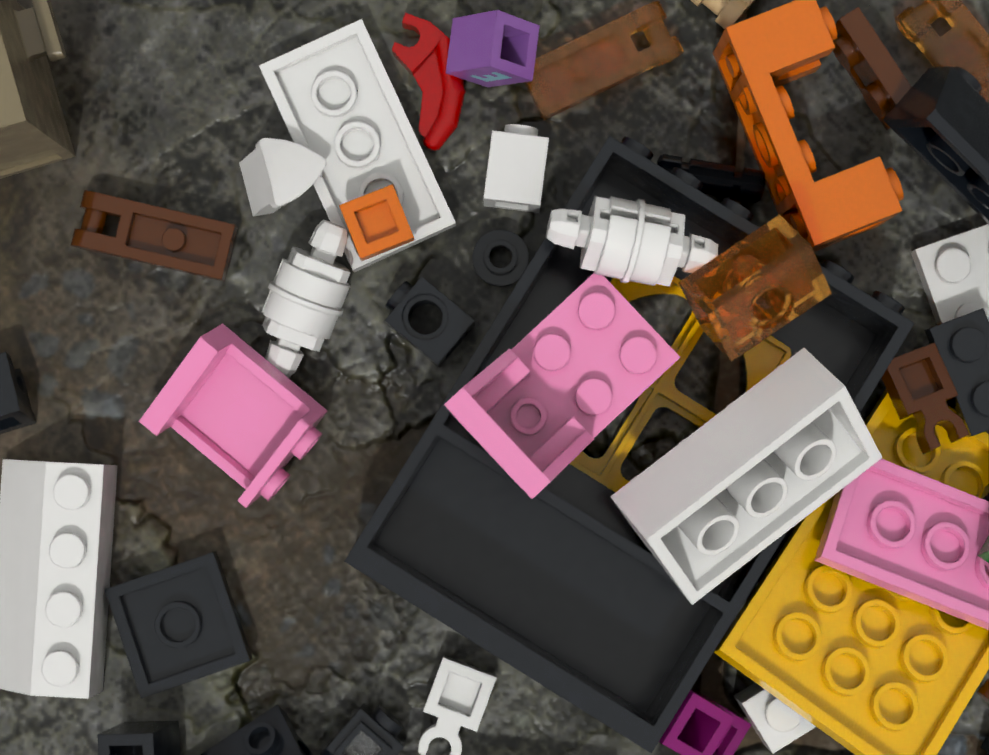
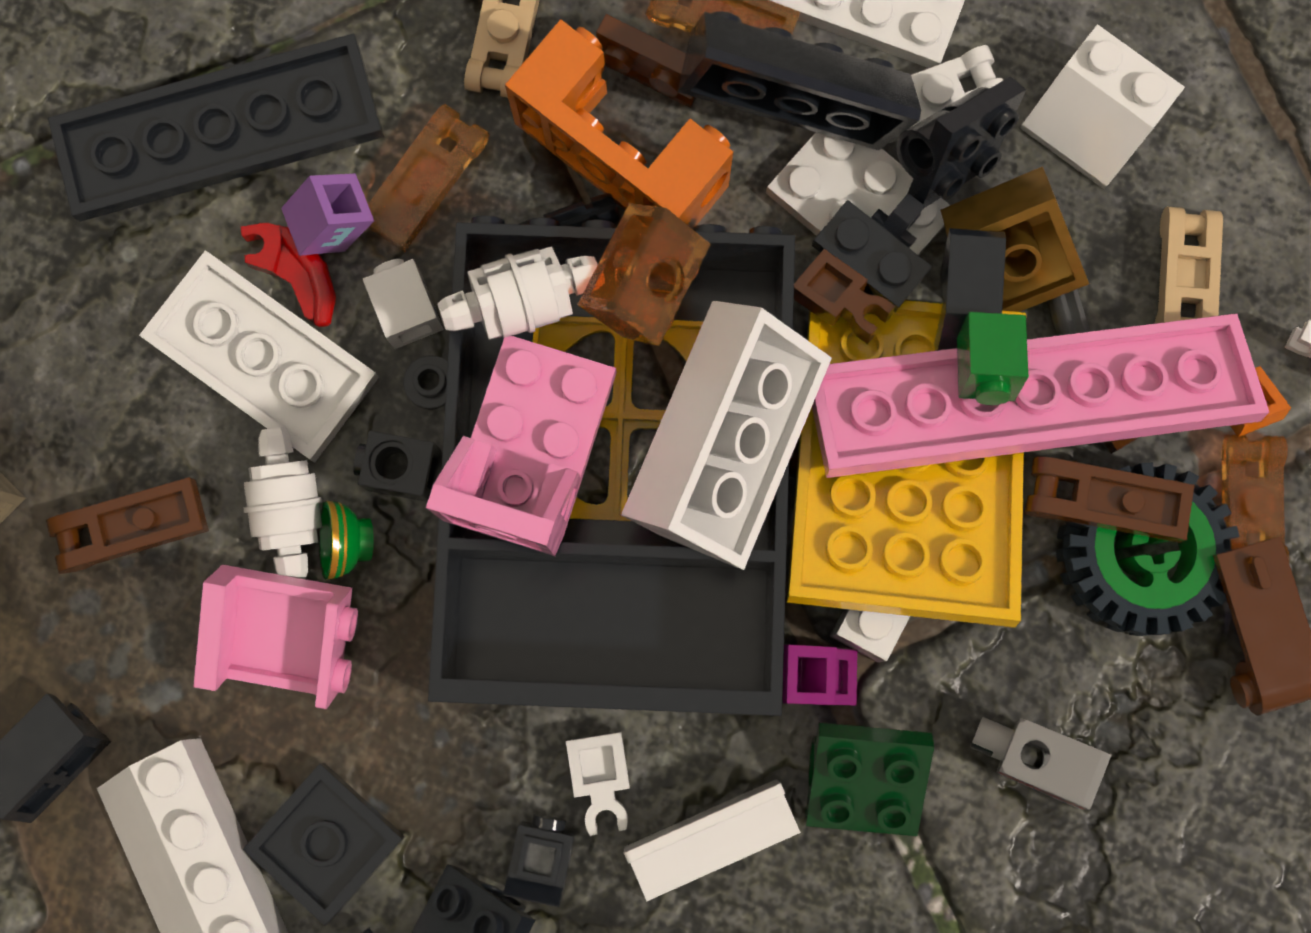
camera: 30 degrees left, 5 degrees down
(278, 173) = (202, 413): white tile -> none
(342, 361) = (343, 540): none -> green piece
(376, 222) = (307, 407): orange plate -> none

